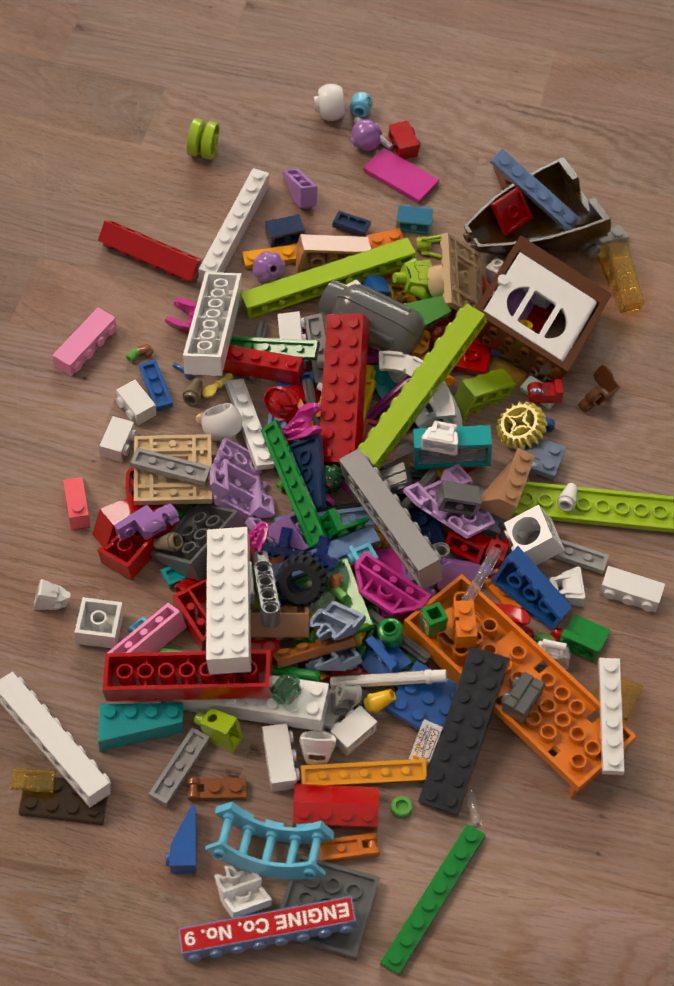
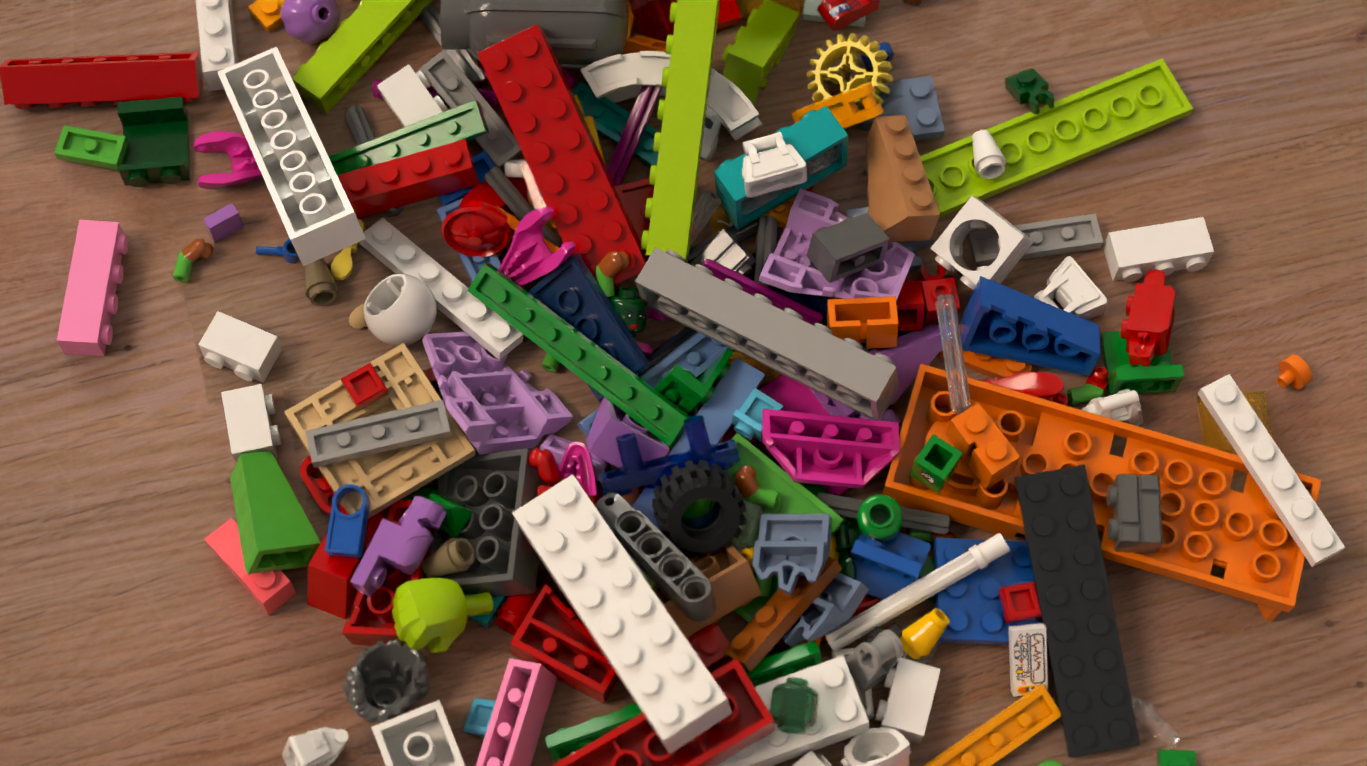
camera: 30 degrees left, 10 degrees up
(98, 481) = (269, 516): none -> bright green slope
(104, 581) = (386, 681): none -> dark grey hair
(125, 279) = (91, 147): none -> bright green plate
(126, 502) = (347, 532): none -> blue piece
(146, 560) = (435, 612): none -> lime piece
(155, 385) = (252, 300): blue plate -> none
(157, 291) = (156, 140): none -> dark green panel
(165, 343) = (223, 222): none -> medium lavender tile
(179, 443) = (364, 386): none -> red tile
(184, 525) = (455, 516): none -> green slope
(241, 520) = (546, 466): none -> red arm
(333, 449) = (608, 268): none -> dark orange arm
(405, 503) = (752, 287): none -> magenta axle
(437, 711) = (1020, 602): none -> red tile
(445, 538) = (864, 320): none -> orange piece
(504, 438) = (845, 108): none -> light orange plate
(600, 617) = (1149, 320): none -> red hinge
(616, 479) = (1030, 87): none -> dark green plate
(664, 685) = (1294, 372): none -> orange tile

